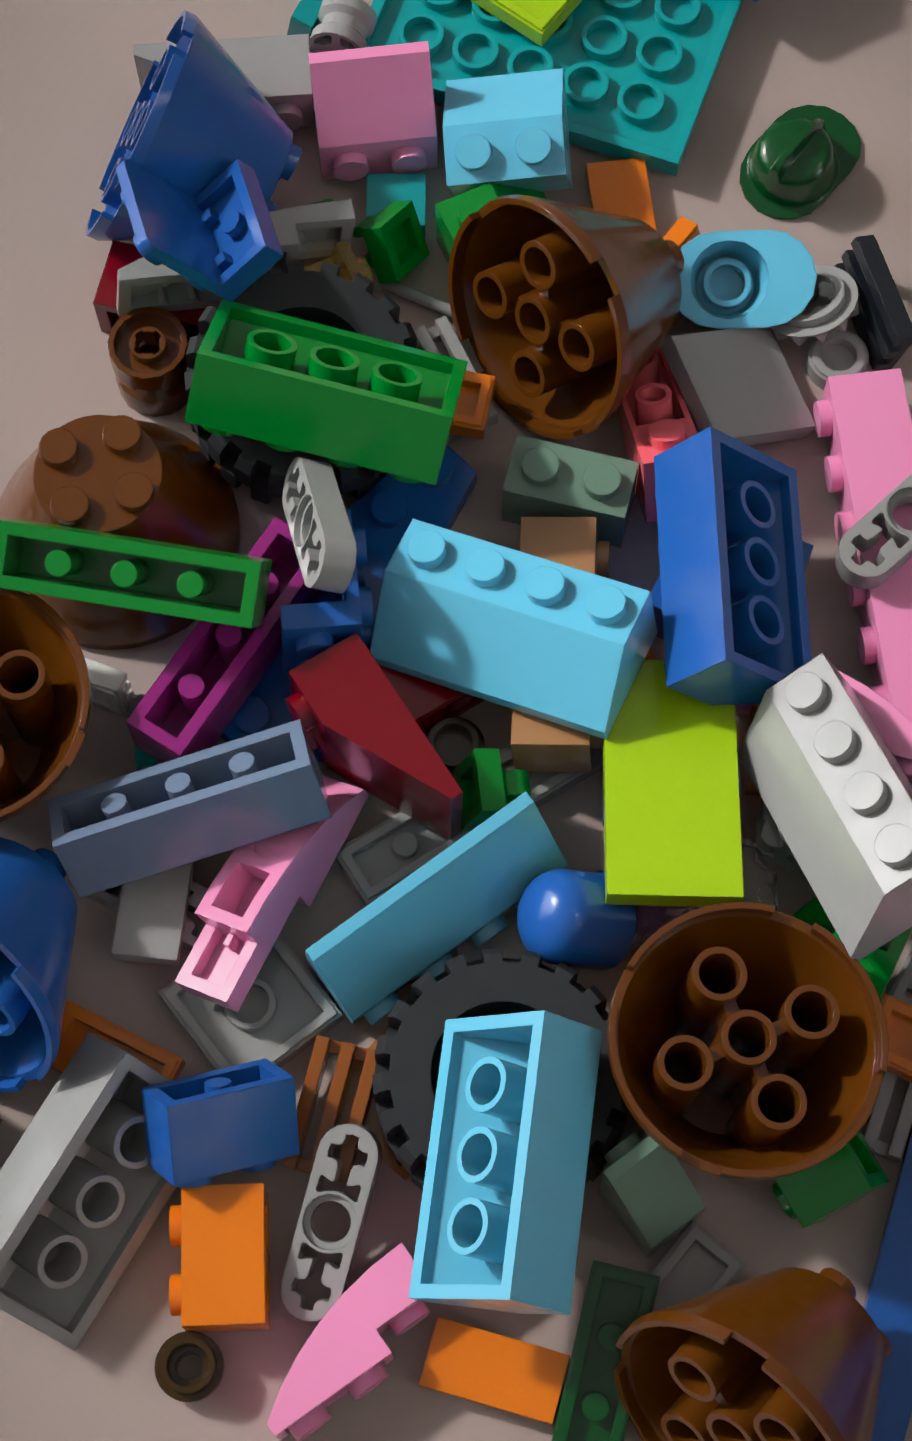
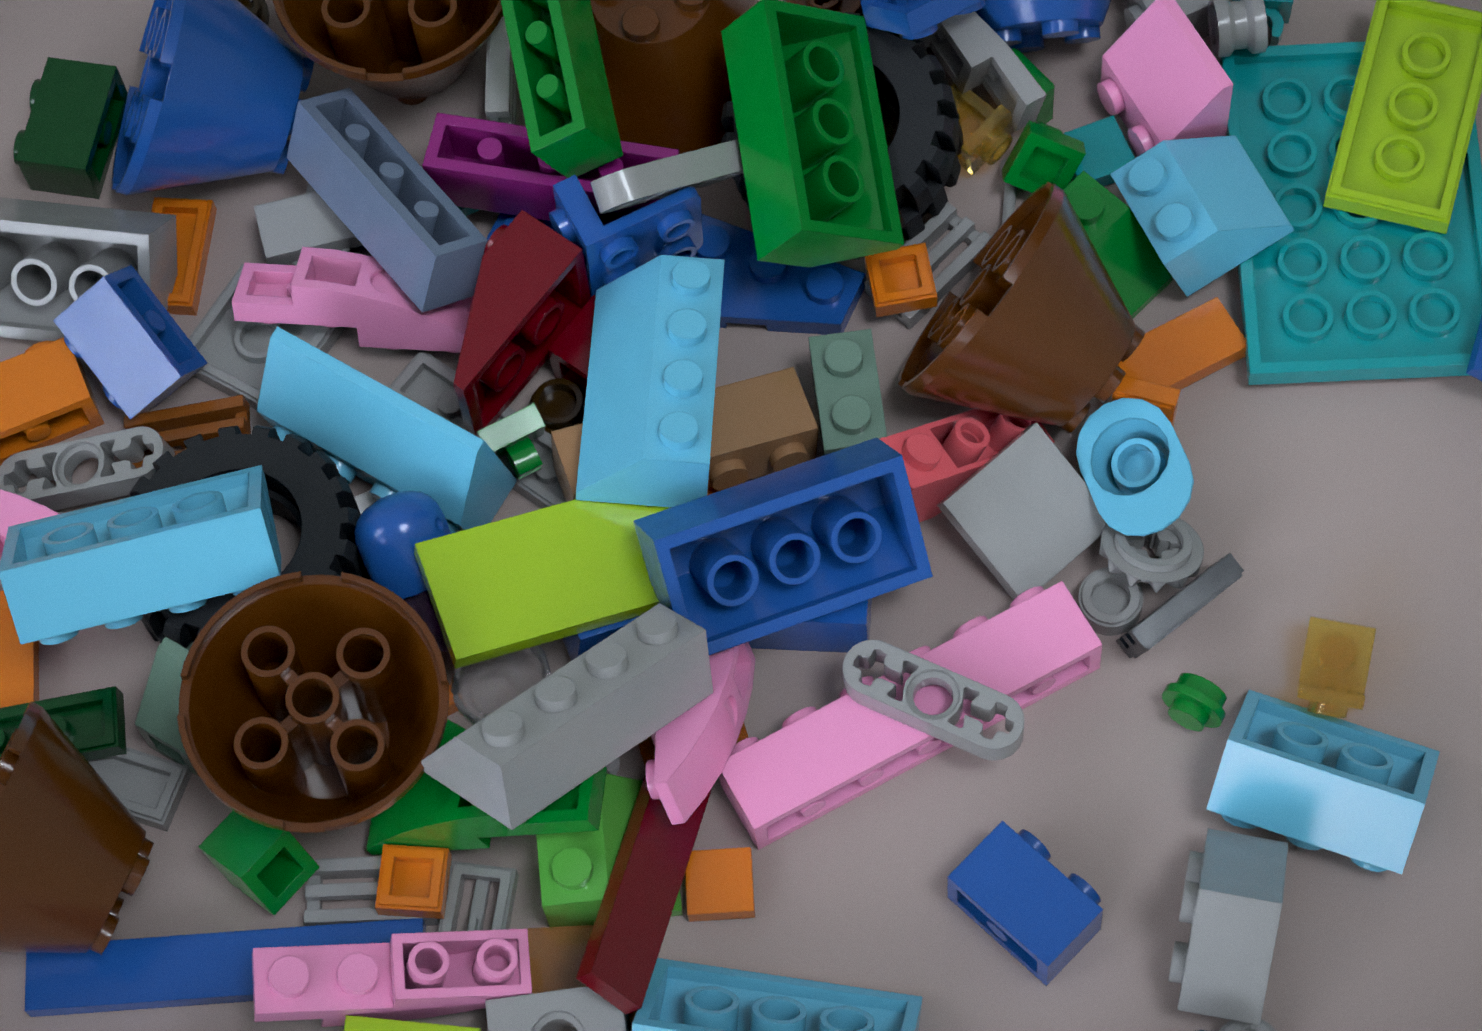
camera: 75 degrees right, 5 degrees down
(799, 162) = (1326, 492): dark green piece -> none

